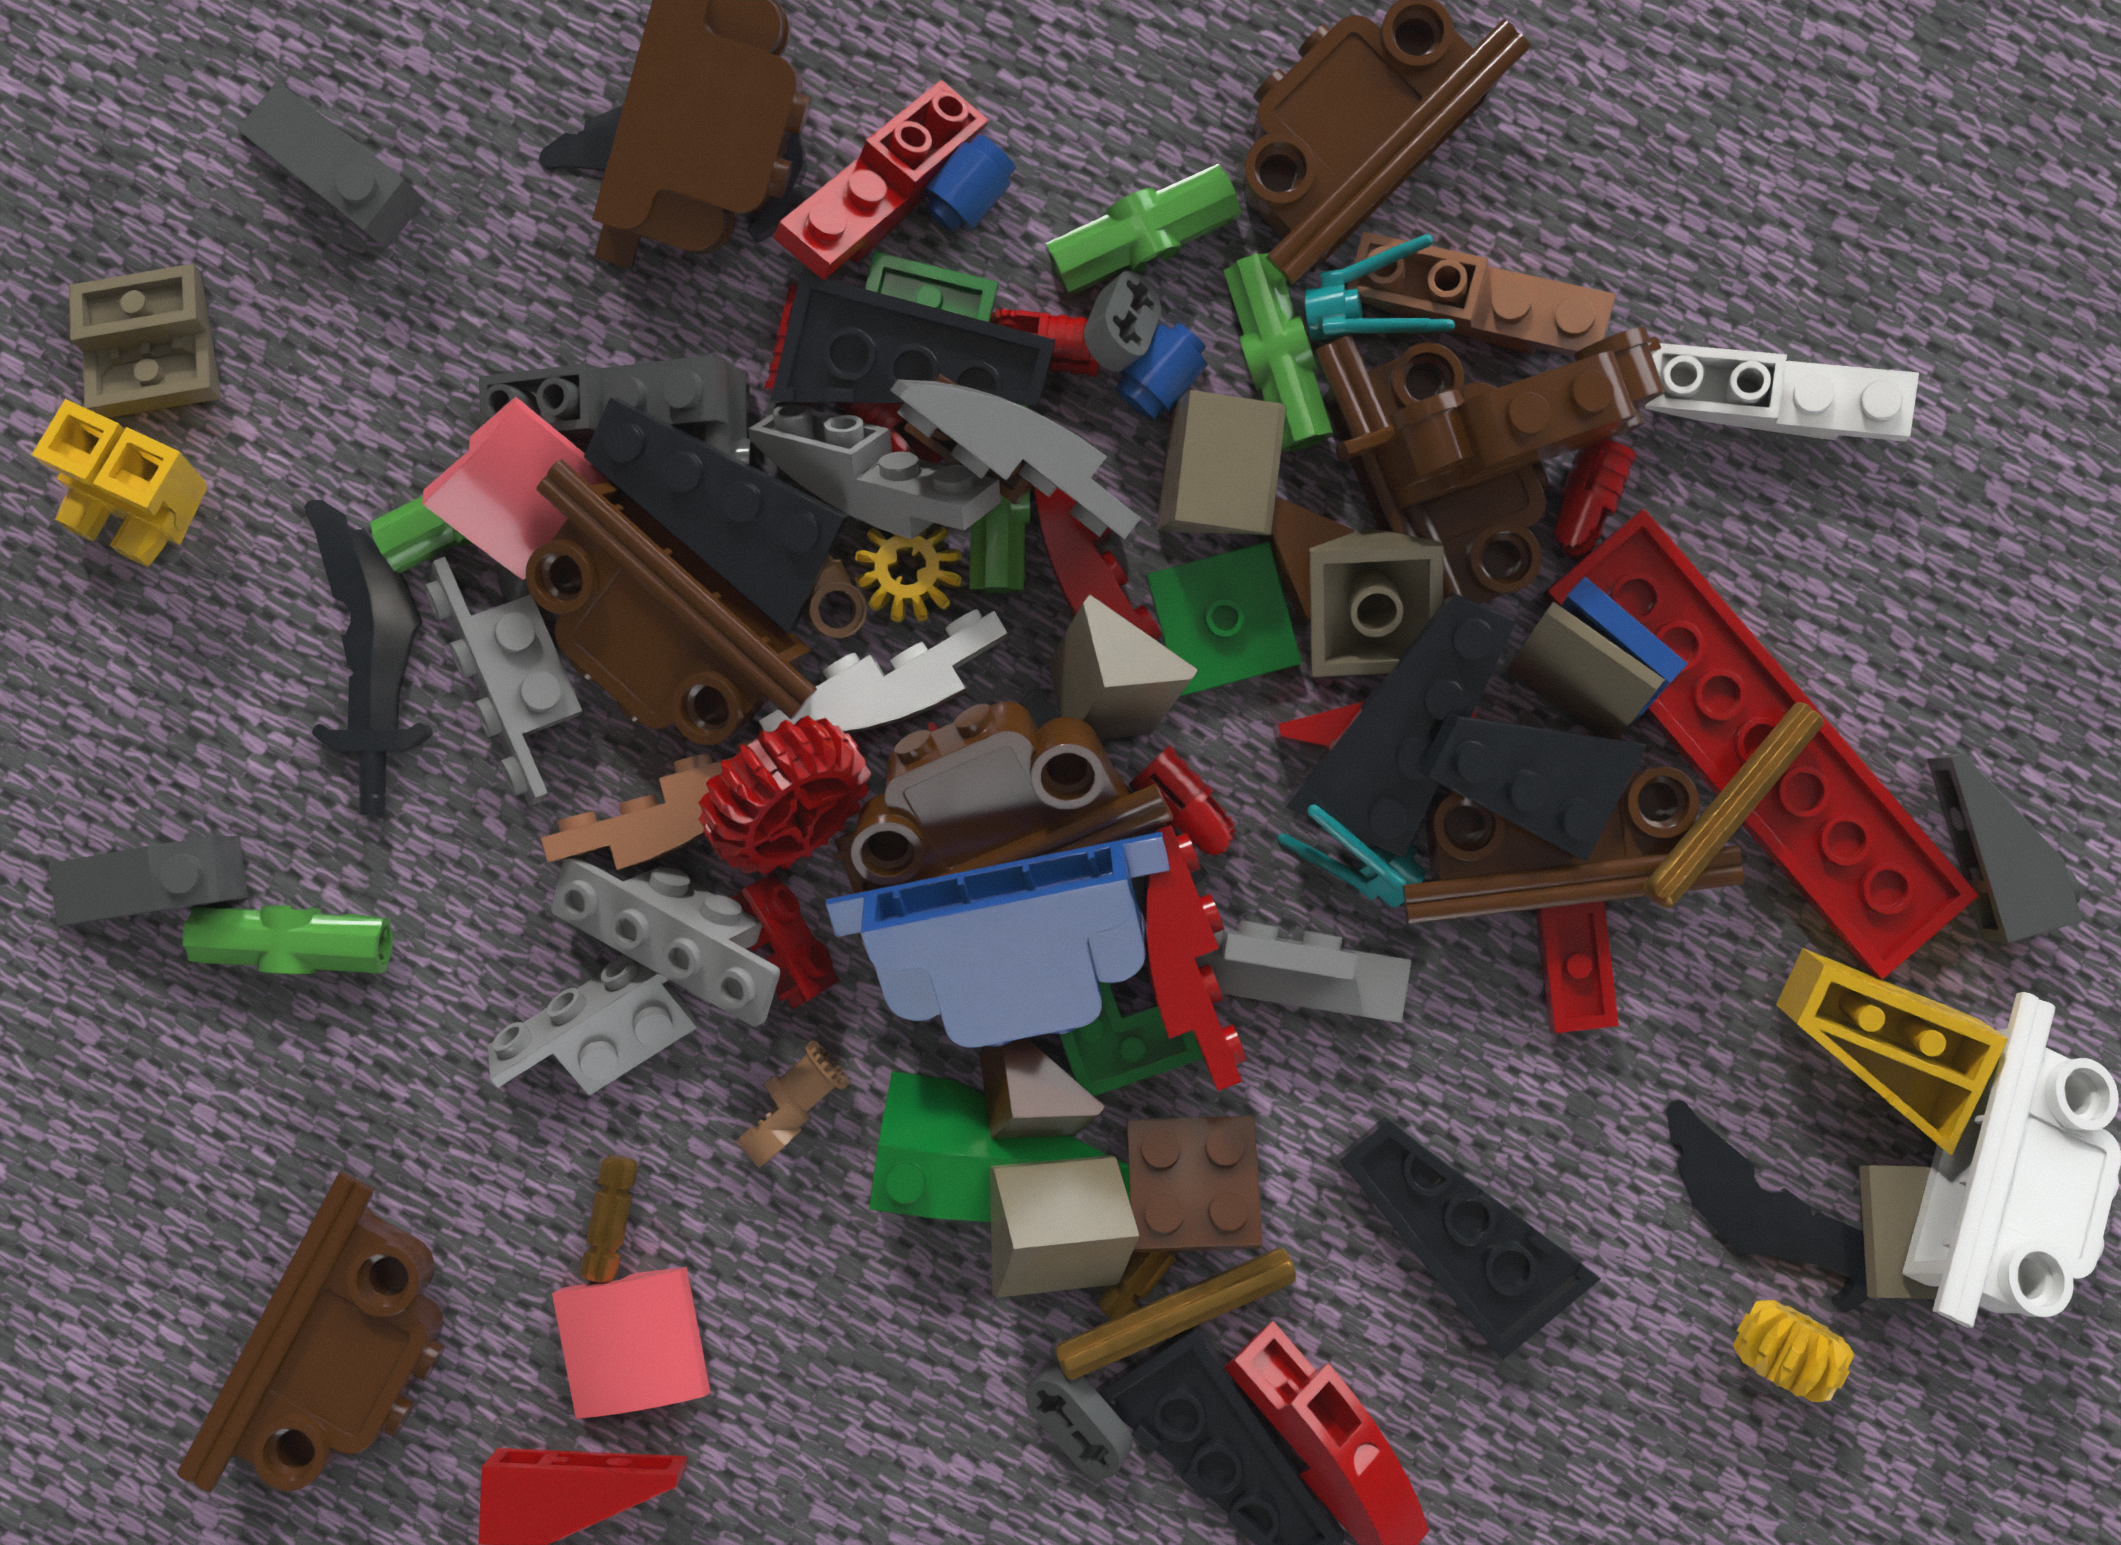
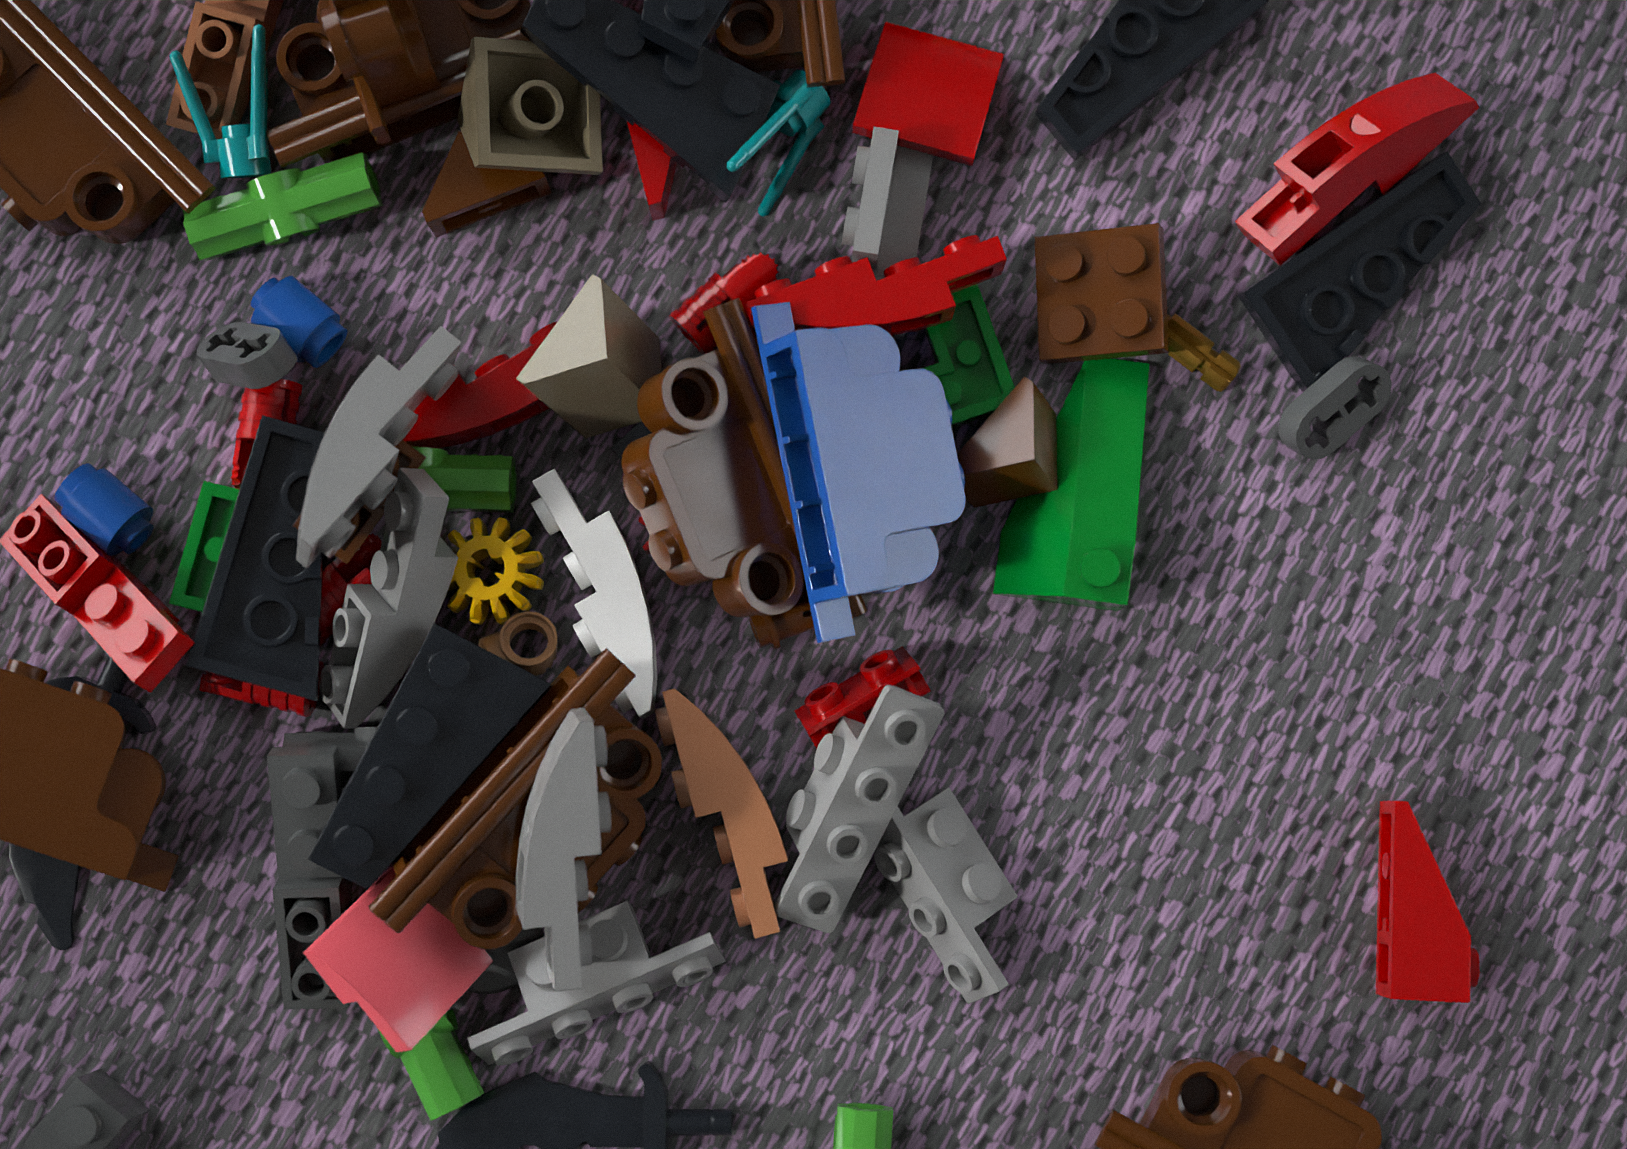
camera: 90 degrees left, 5 degrees down
(609, 1218) = (1142, 877): pearl gold axle -> none
(624, 642) = (560, 824): none -> light grey slope
(631, 1343) = (1266, 854): coral slope -> none
(784, 795) = (713, 686): red gear -> none
(795, 1096) = (1013, 683): medium nougat connector -> none
(1059, 1225) = (1143, 420): dark tan slope -> none
(1143, 229) = (155, 338): bright green piece -> none
(1175, 1313) = (1228, 313): pearl gold axle -> none
(1221, 465) = (392, 262): dark tan slope -> none
(1225, 617) = (540, 260): green plate -> none
(1404, 1008) = (928, 92): none -> red slope

